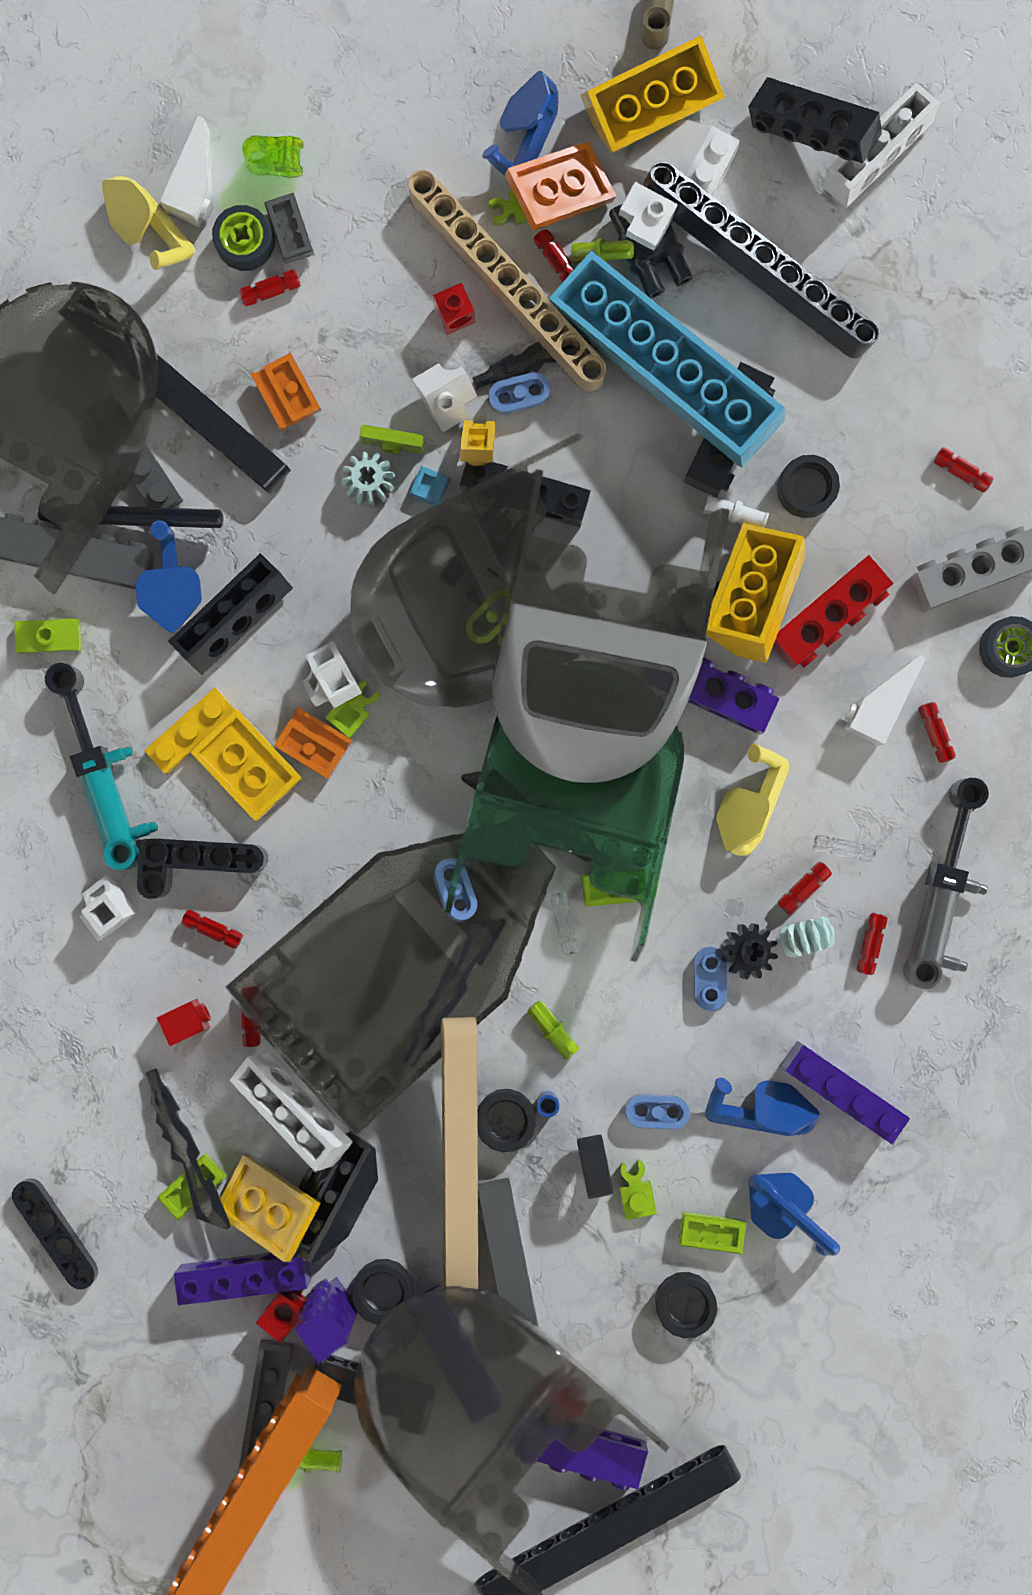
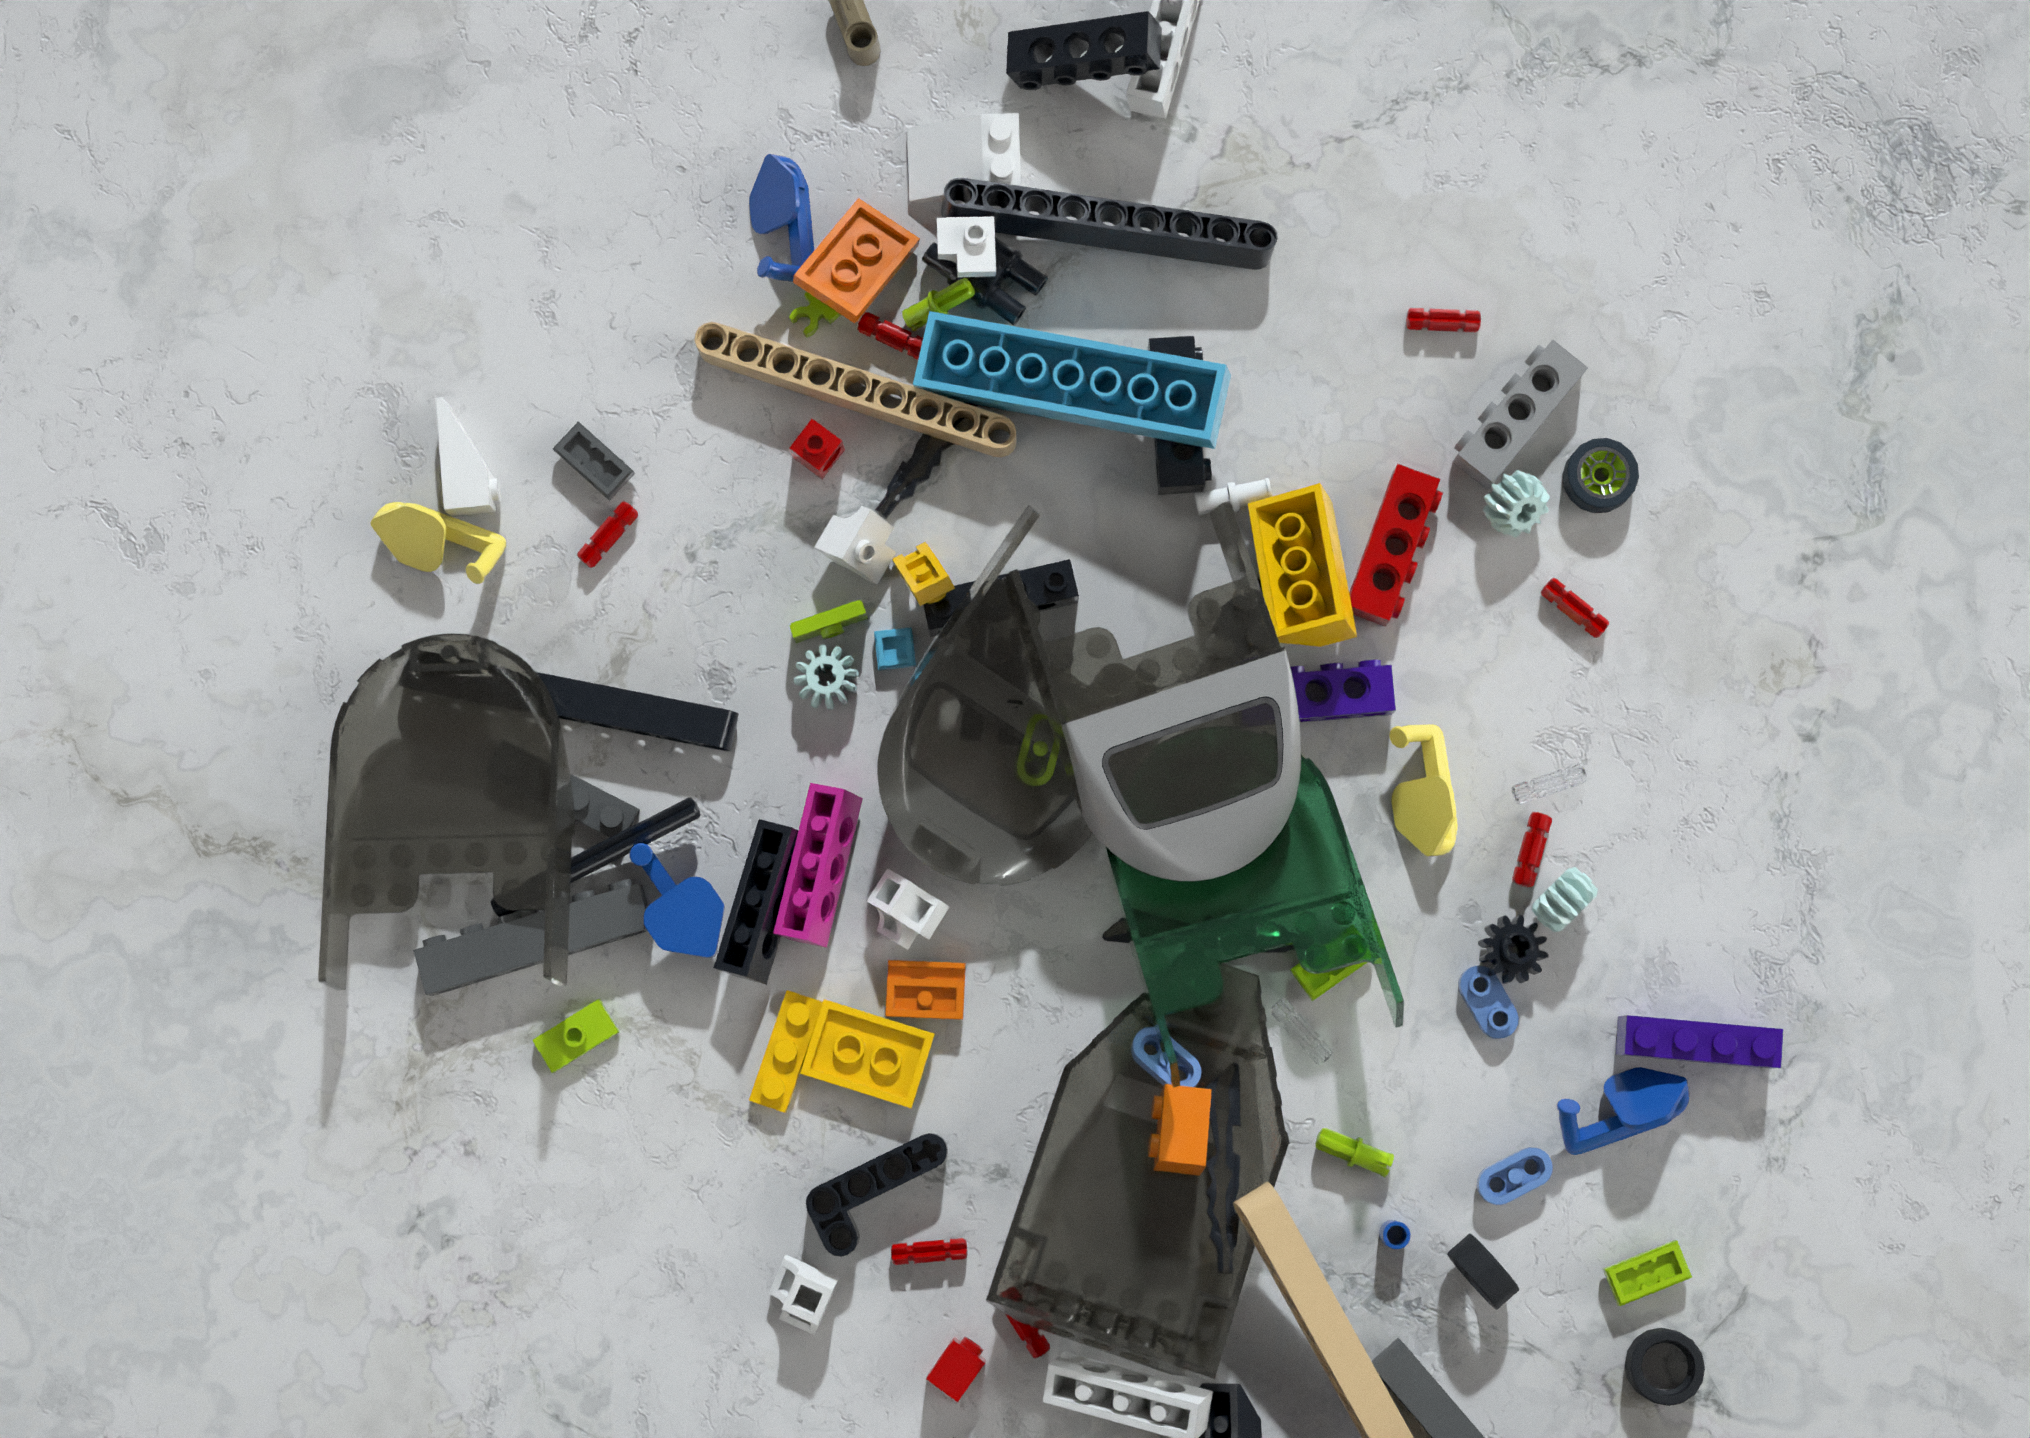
camera: 25 degrees left, 5 degrees down
(94, 770) = (717, 1159): teal piece -> none
(245, 254) = (564, 511): wheel -> none
(276, 156) = (538, 392): clear neon green piece -> none
(285, 610) = (818, 865): none -> dark pink brick
(286, 392) = (687, 634): orange plate -> none
(351, 714) = (950, 936): lime plate -> none
(436, 945) = (1181, 1129): none -> orange brick
(516, 1142) = (1389, 1272): black tyre -> none
(518, 391) = (934, 499): medium blue plate -> none
(637, 1195) = (1545, 1278): lime plate -> none
(653, 95) = (900, 114): yellow slope -> none
(781, 1204) = (1703, 1197): blue piece -> none
(823, 467) = (1292, 398): black tyre -> none
(872, 944) = (1636, 868): red axle -> none
(878, 710) = (1500, 620): white slope -> none
(938, 632) = (1516, 503): none -> light aqua gear
(943, 890) = (1679, 773): dark grey piece -> none

